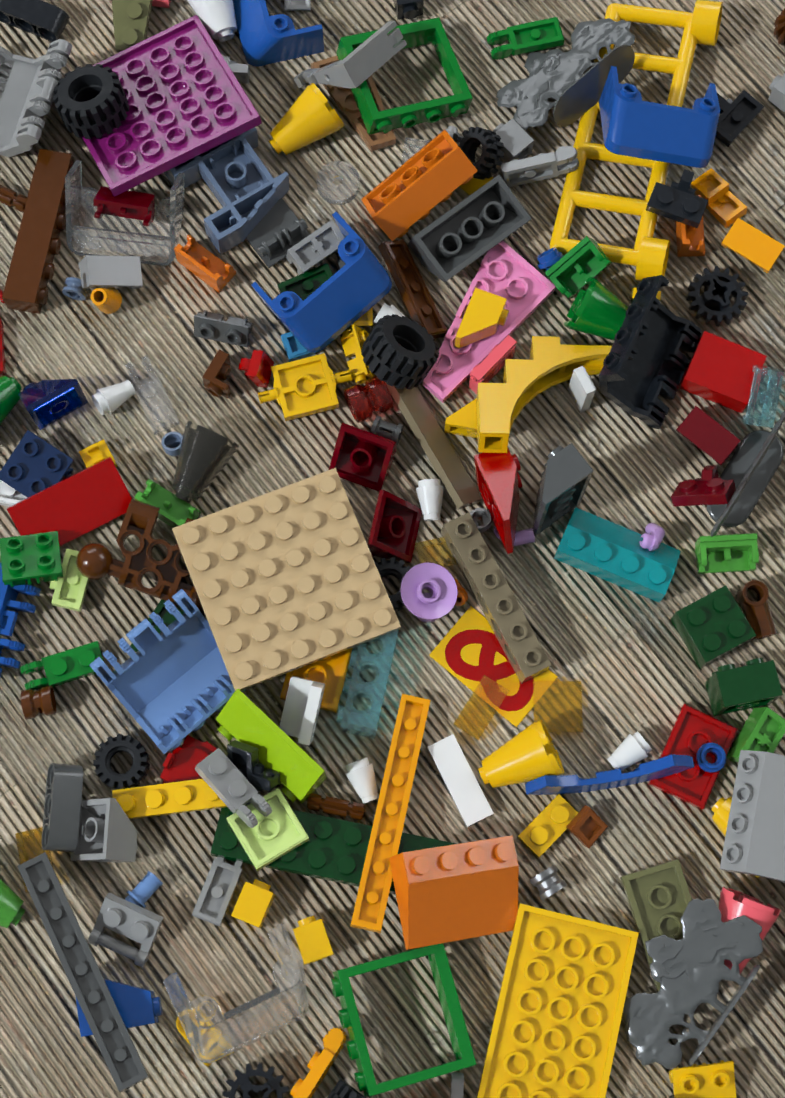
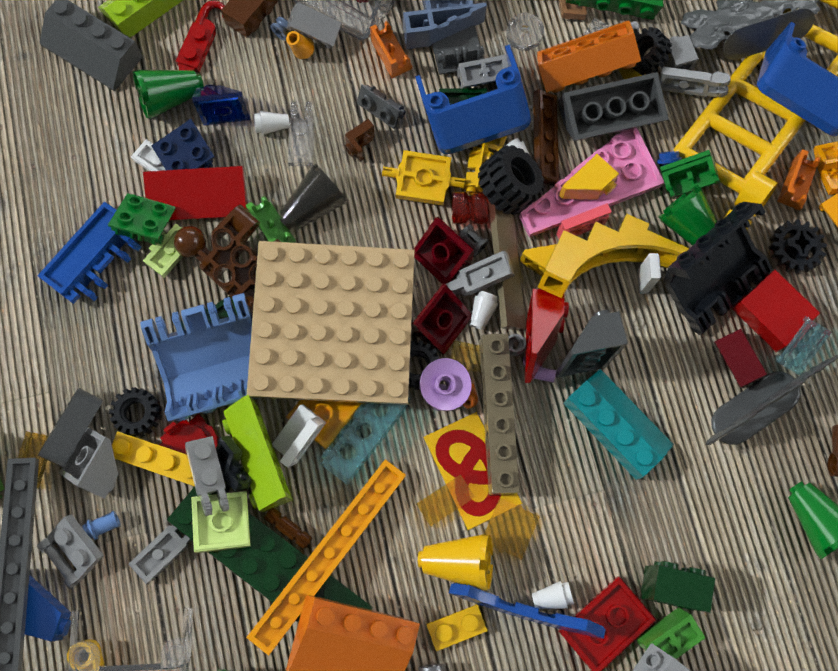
camera: 25 degrees right, 0 degrees up
(38, 702) = (95, 335): reddish brown wheel -> none
(63, 666) = (127, 314): green hinge -> none
(96, 453) = (237, 158): yellow tile -> none
(171, 443) = (296, 176): sand blue hinge -> none
(253, 903) = (181, 578): yellow brick -> none
(257, 368) = (393, 147): red tile -> none
(293, 348) = (428, 143): dark azure tile -> none
(312, 940) = (214, 633): yellow brick -> none
(363, 779) = (320, 515): white cone -> none
(414, 463) = (482, 274): none -> light grey hinge
(460, 780) = (400, 554): white tile -> none
(587, 826) = (488, 644): dark orange tile -> none
(652, 537) = (654, 422): lavender arm -> none
(678, 201) = (799, 154): black hinge -> none
(705, 490) = (717, 403): dark red hinge -> none
(713, 627) = (673, 522): dark green brick -> none
(719, 754) = (630, 639): blue plate -> none
(726, 553) = (713, 464): bright green hinge -> none
(757, 612) = (717, 528): reddish brown piece -> none

